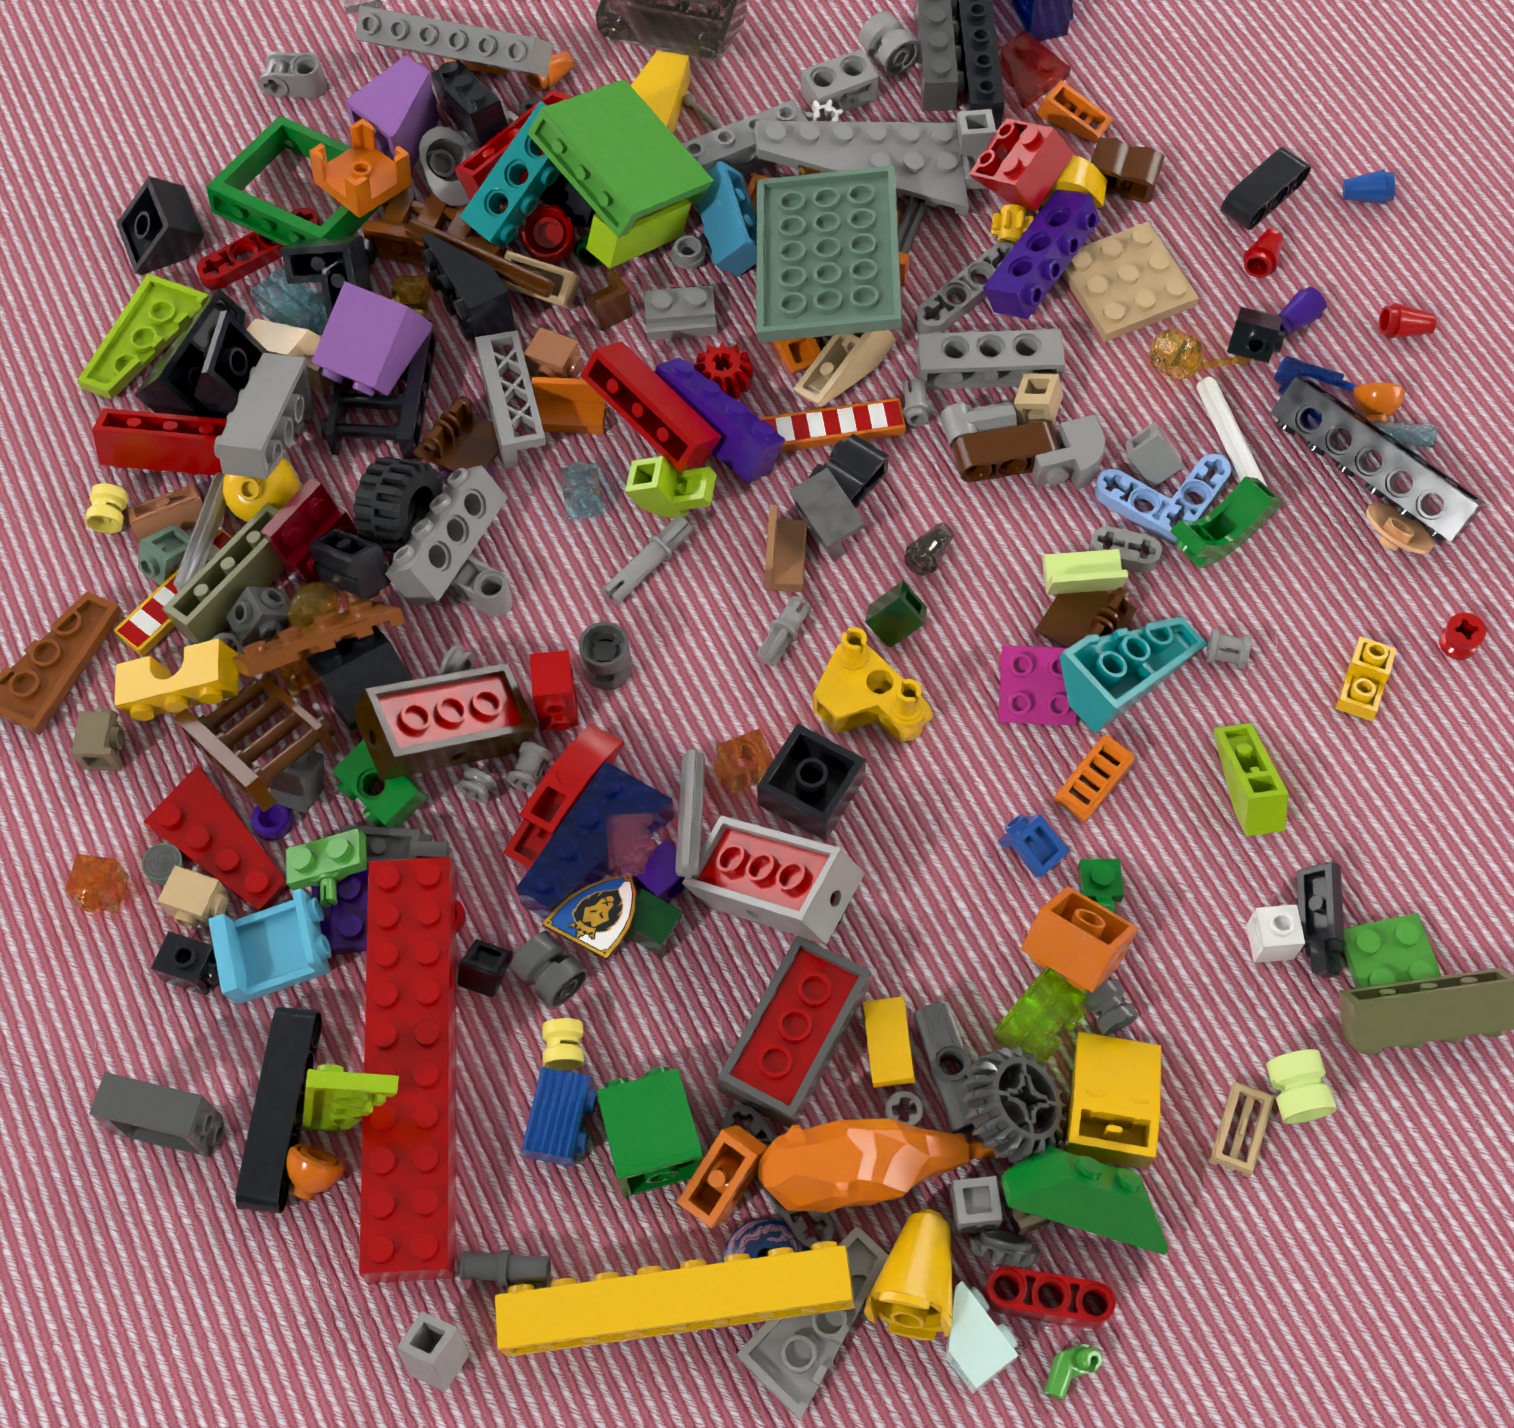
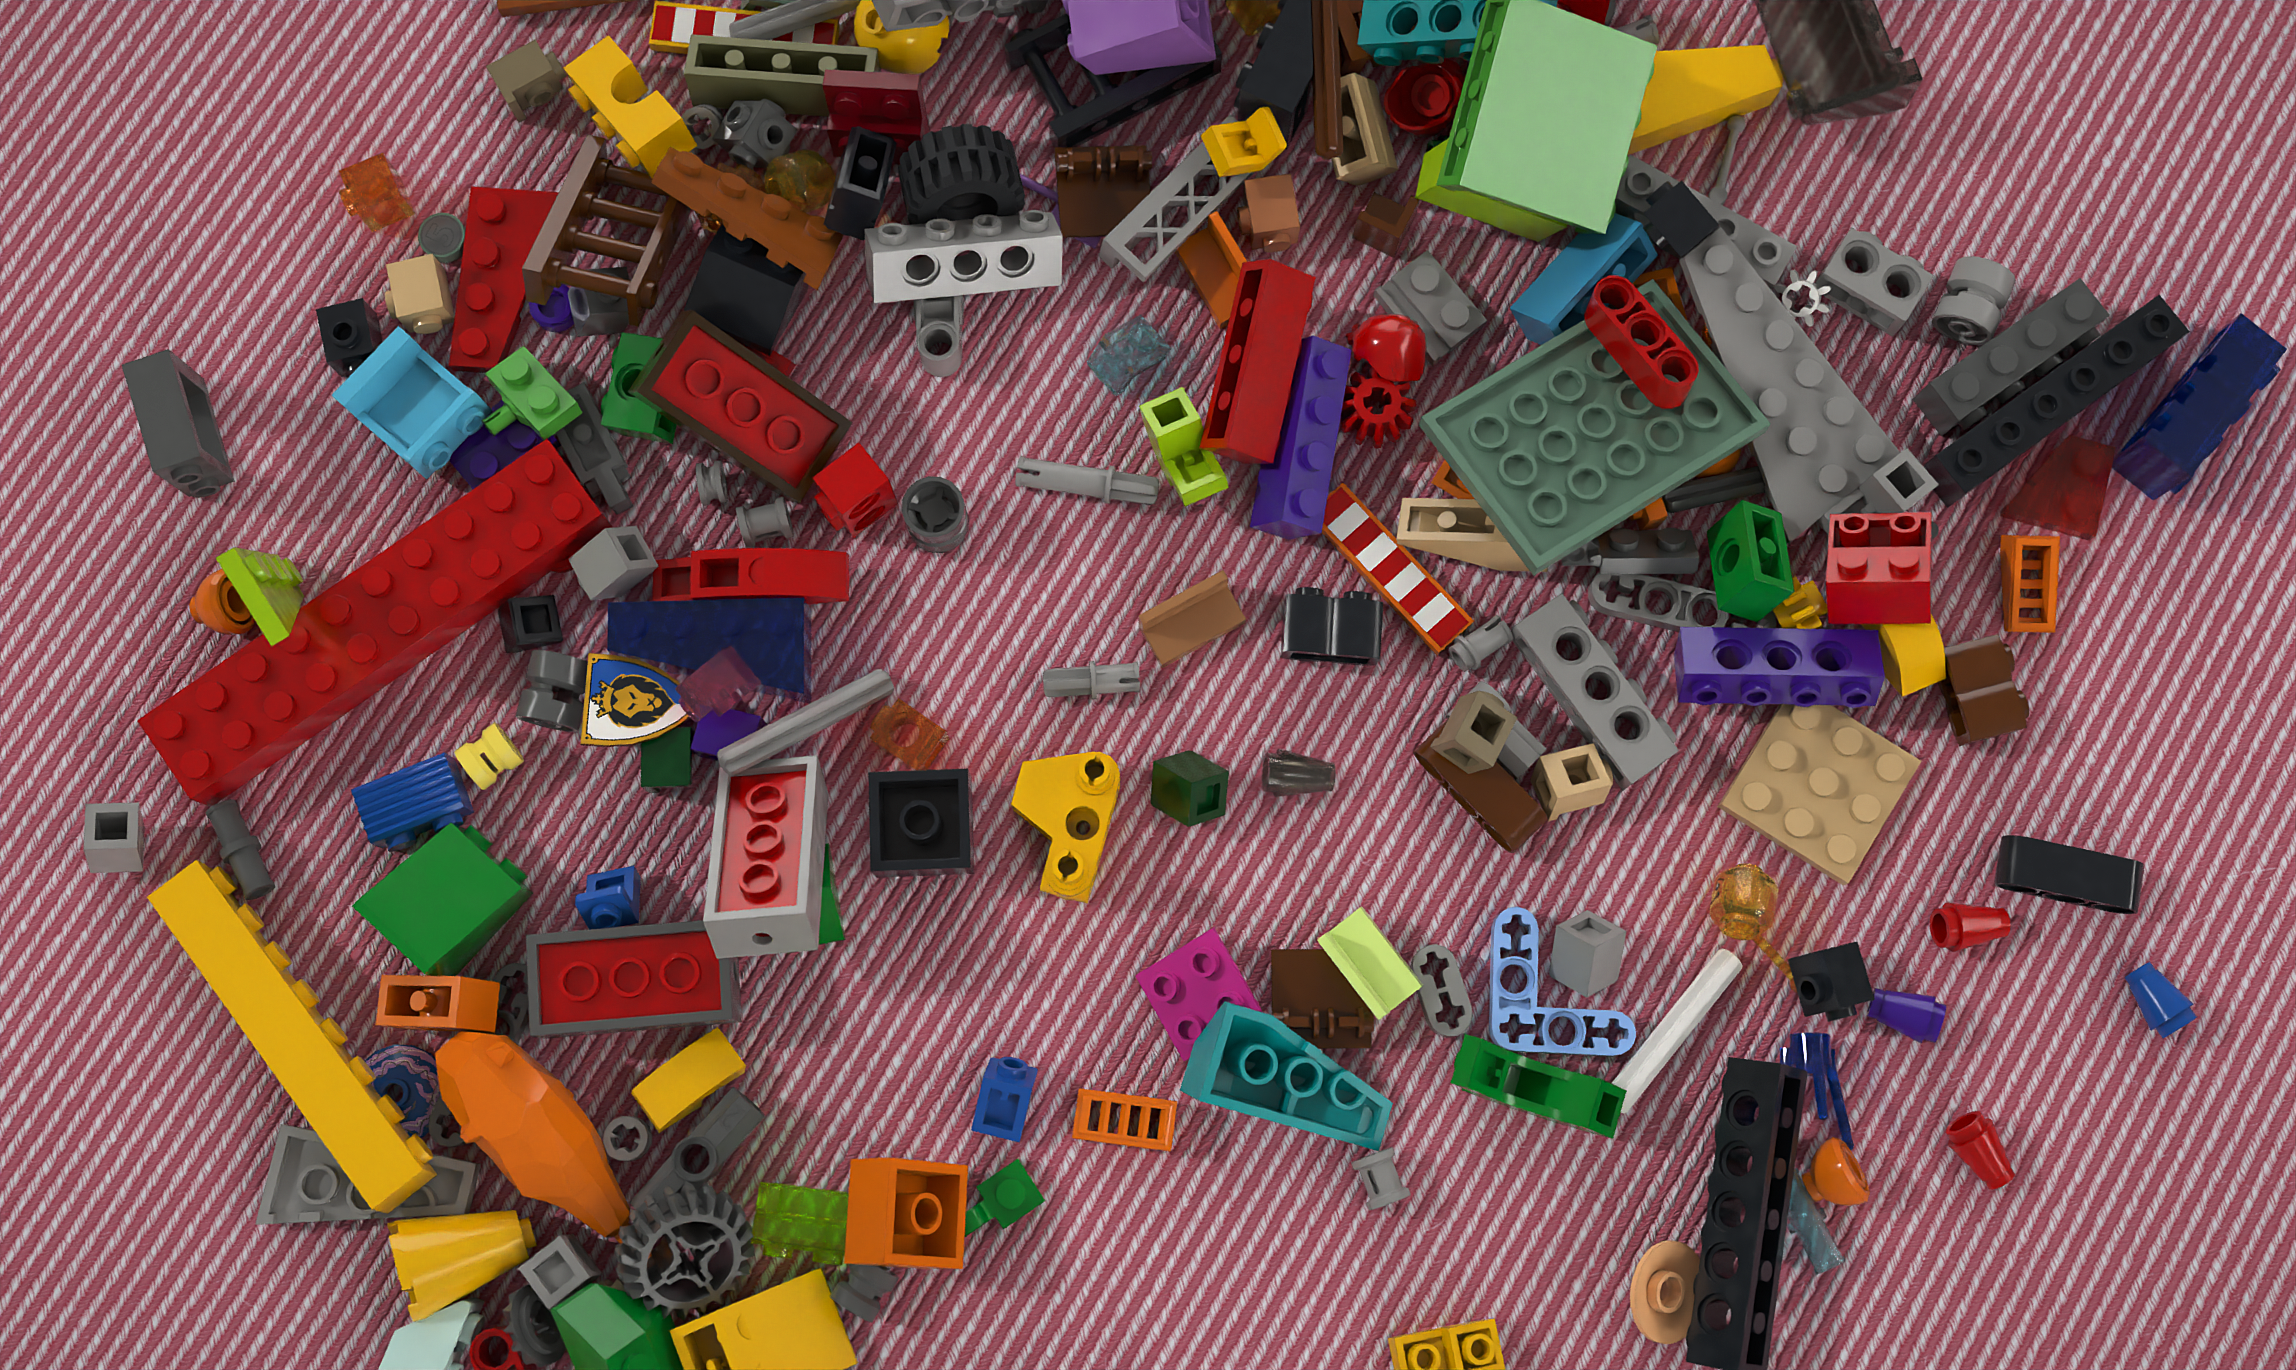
camera: 55 degrees right, 15 degrees up
(278, 1109) = (267, 525): black beam -> none
(457, 661) = (835, 369): light grey bush -> none
(486, 878) = (613, 562): none -> light grey brick
(505, 331) = (1244, 144): none -> yellow bracket
(688, 245) = (1515, 252): light grey plate -> none
(690, 334) = (1391, 346): none -> red hair
(725, 1016) = (611, 899): none -> blue bracket
(734, 137) = (1678, 218): none -> black brick
(796, 195) = (1639, 320): none -> red beam
(827, 511) = (1261, 636): flat silver panel -> none
(922, 283) = (1638, 552): none -> dark grey hinge
(968, 229) = (1750, 561): none -> green brick
(977, 421) = (1481, 746): none -> dark tan brick
(1079, 456) = (1528, 875): light grey brick -> none
(1252, 780) = (1230, 1290): lime slope -> none

